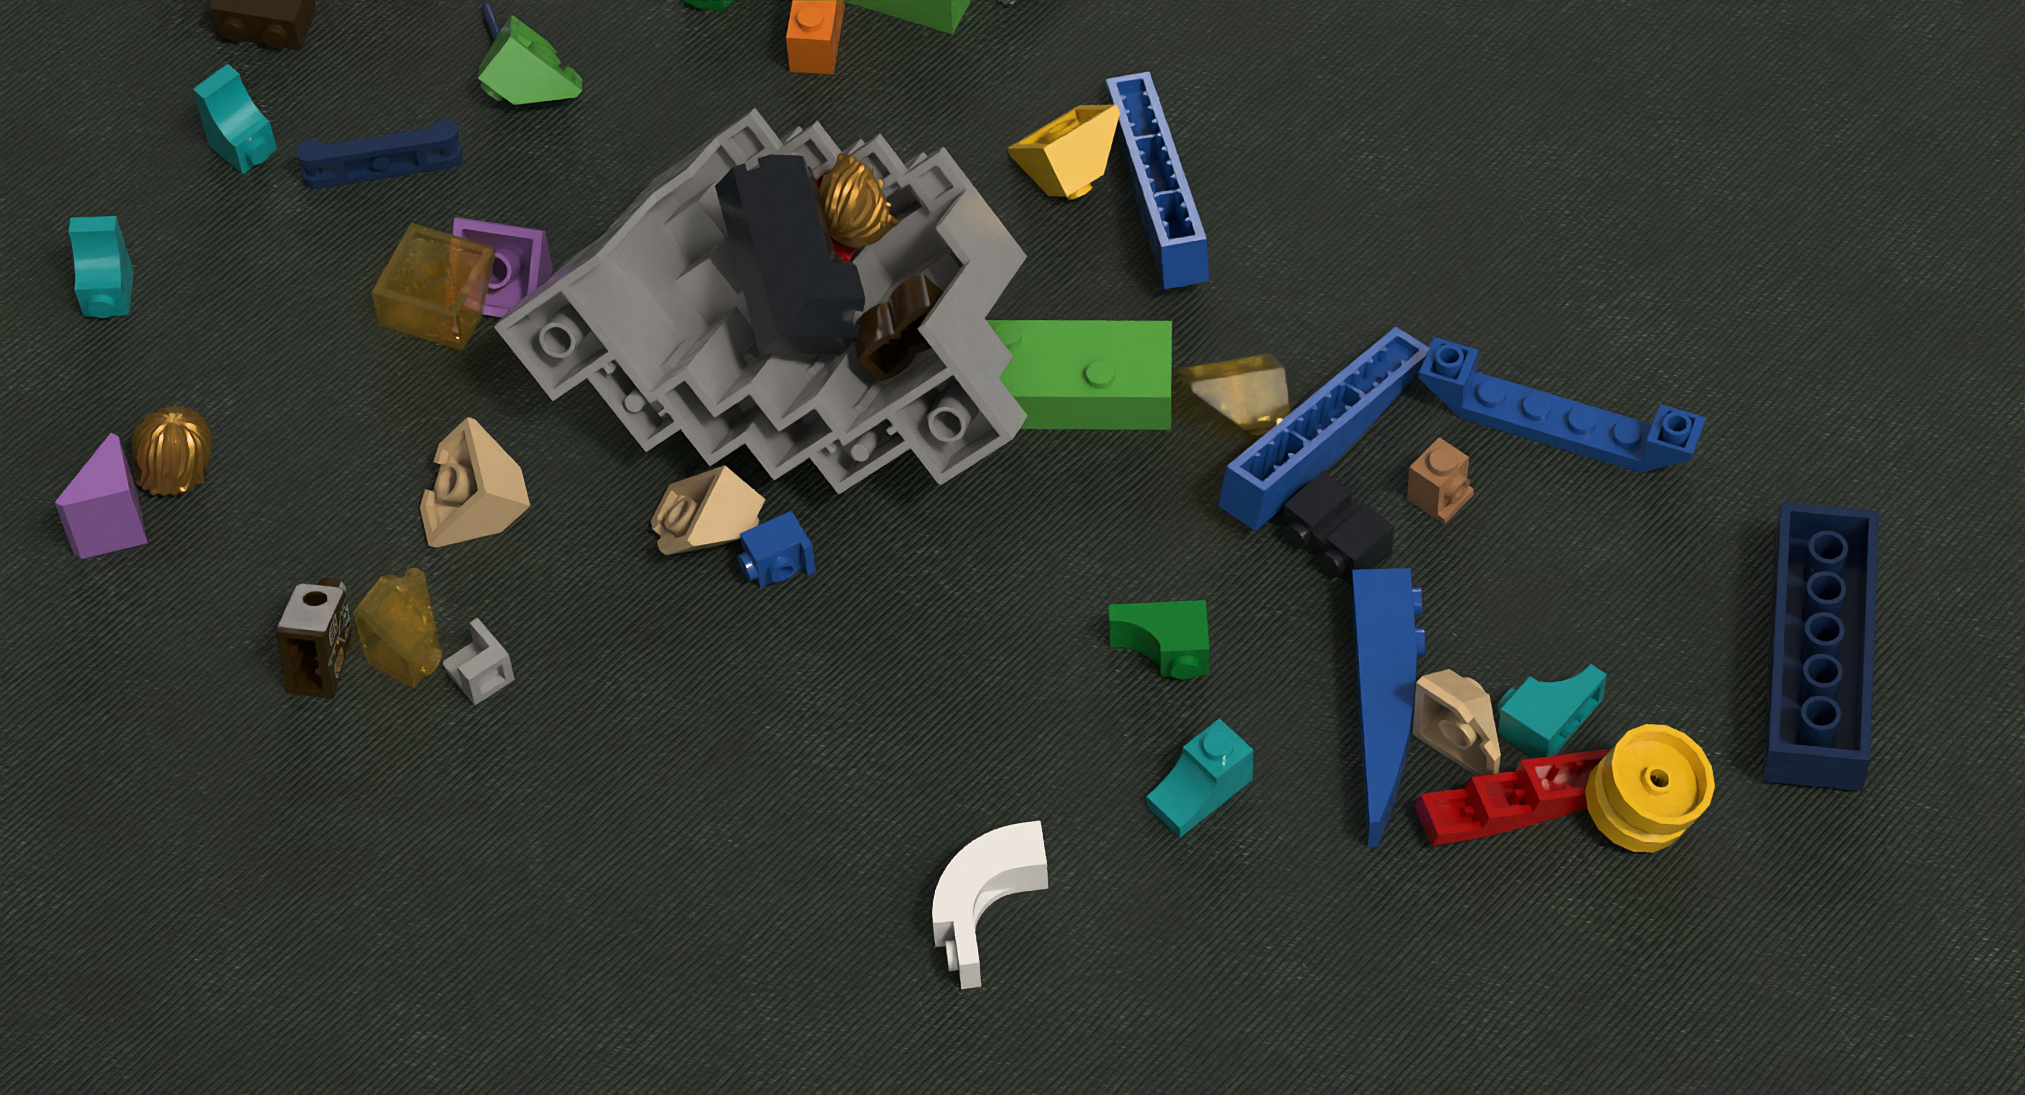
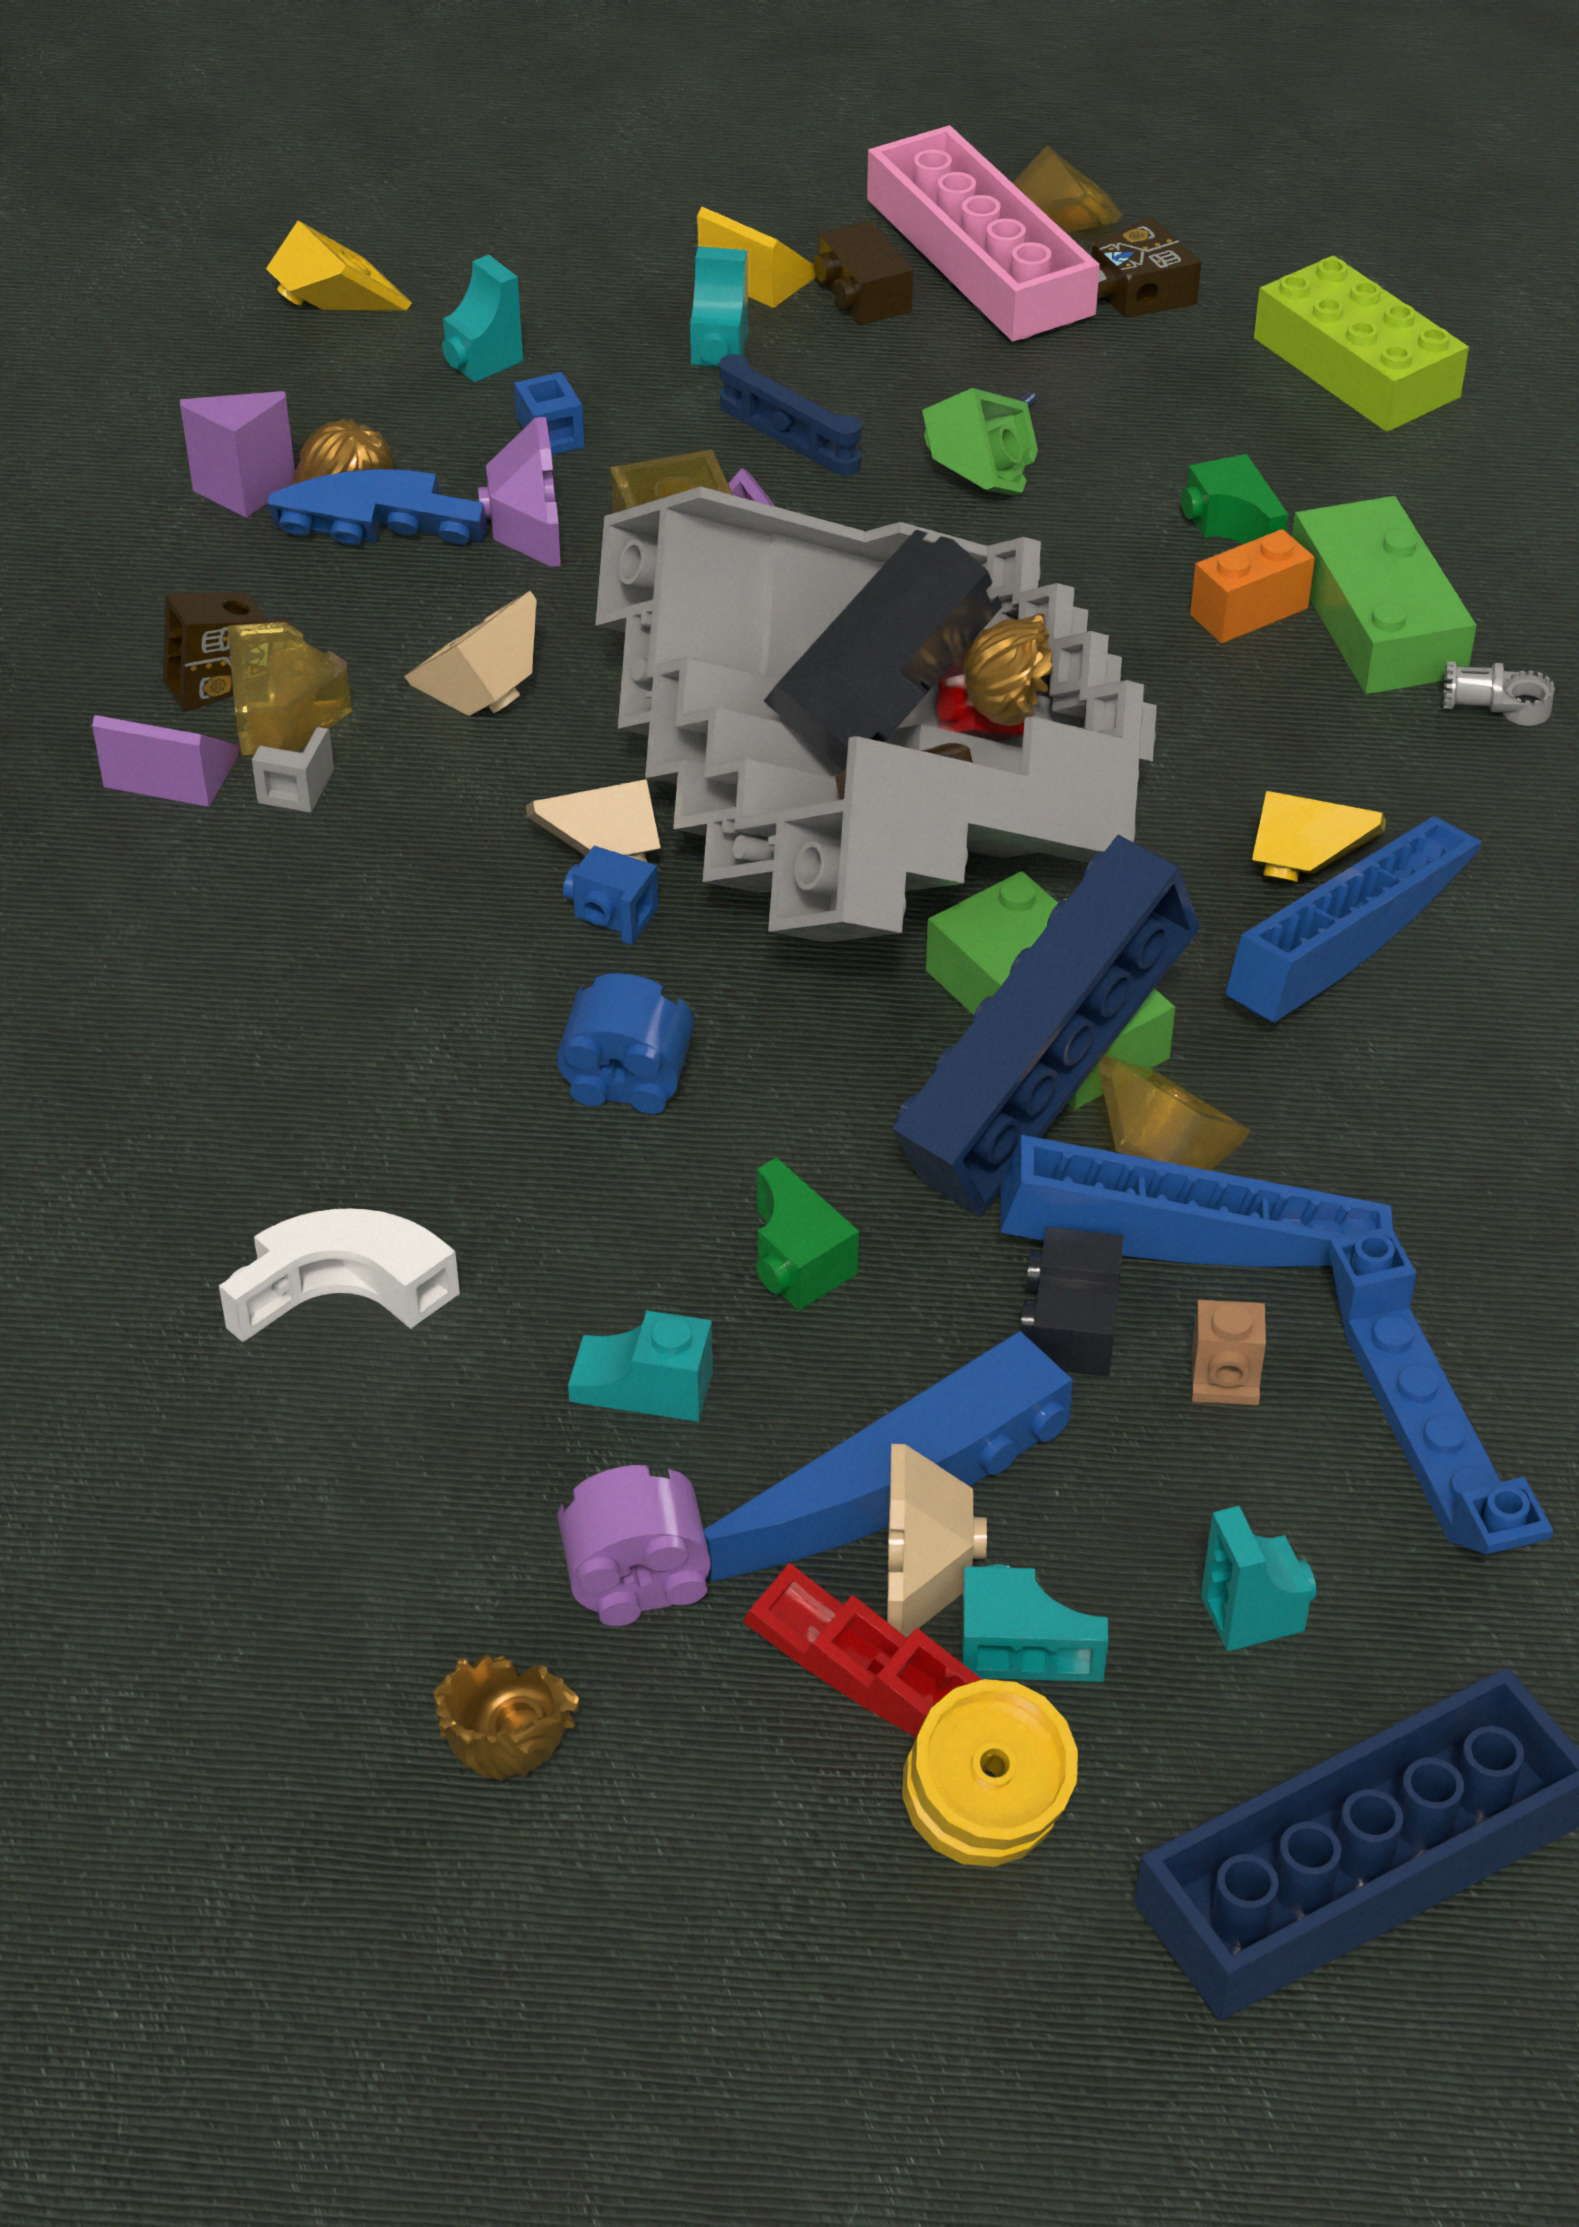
camera: 50 degrees right, 10 degrees down
(173, 67) = (772, 267): none -> yellow slope
(235, 291) = (554, 399): none -> blue brick
(238, 461) = (356, 503): none -> blue slope
(327, 362) = (523, 495): none -> medium lavender slope
(392, 733) = (161, 760): none -> medium lavender slope
(936, 626) = (625, 1043): none -> blue brick
(1160, 392) = (1047, 1023): none -> dark blue brick
(1349, 862) = (634, 1543): none -> medium lavender brick
(1419, 1000) = (501, 1719): none -> pearl gold hair
(1615, 584) = (1253, 1583): none -> teal arch

